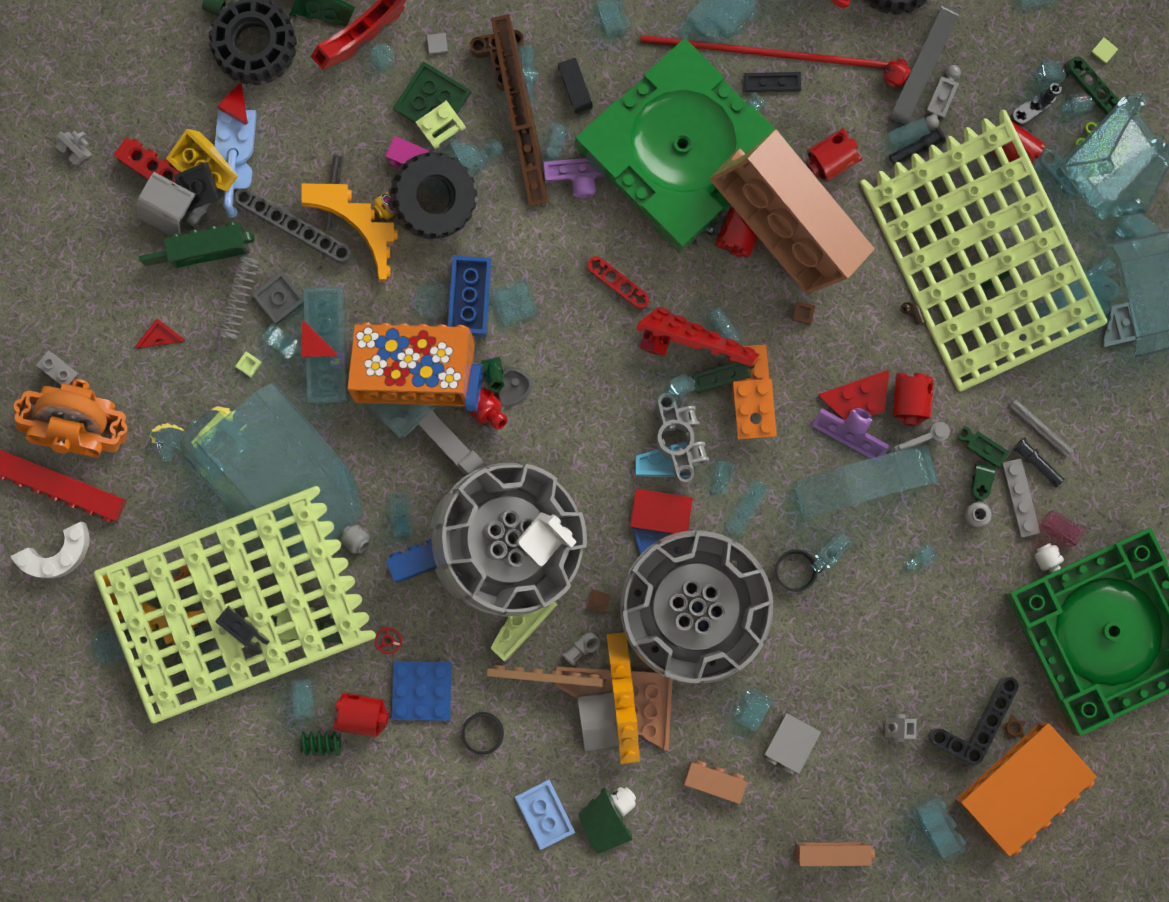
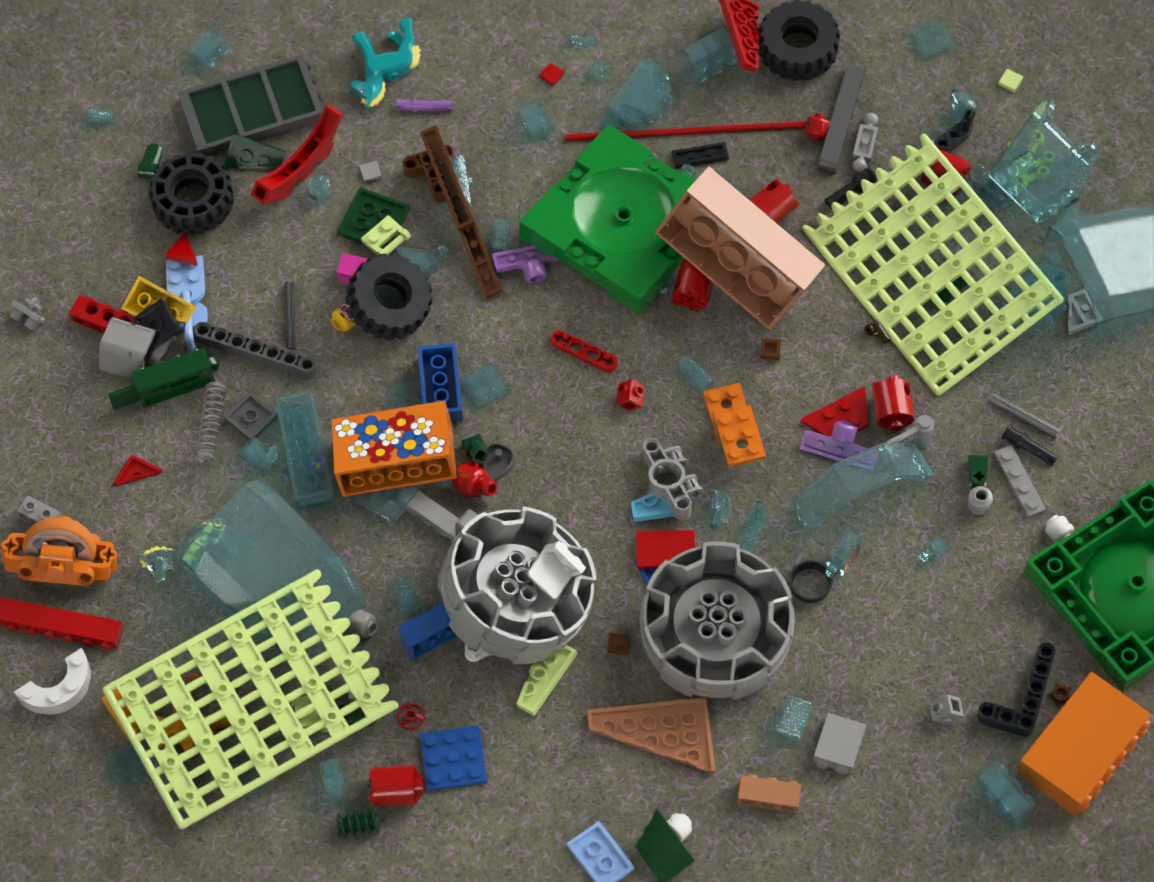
camera: 10 degrees left, 20 degrees down
(241, 629) = (260, 714): black hinge -> none
(248, 364) = (229, 482): yellowish green tile -> none
(314, 345) = (294, 446): red tile -> none
(335, 199) = (295, 318): light orange arch -> none
(474, 387) = (459, 459): blue beam -> none
(500, 728) = (526, 805): black tyre -> none
(554, 676) = (580, 718): medium nougat plate -> none
(575, 85) = (511, 185): black beam -> none
(580, 648) = (608, 689): light grey connector -> none
(598, 721) = (646, 753): light grey piece -> none
(623, 698) = (665, 732): light orange arch -> none
(680, 387) = (662, 430): clear light blue slope -> none
(695, 336) = (668, 379): red wing -> none
(721, 376) = (700, 416): dark green tile -> none
(834, 854) = (904, 838): nougat window -> none
(909, 132) = (839, 175): clear light blue axle -> none
(984, 447) = (973, 440): dark green plate -> none
(1062, 528) = (1065, 499): clear pink brick -> none
(1077, 104) = (995, 127): clear light blue head -> none
(1091, 89) = (985, 97): dark green beam -> none

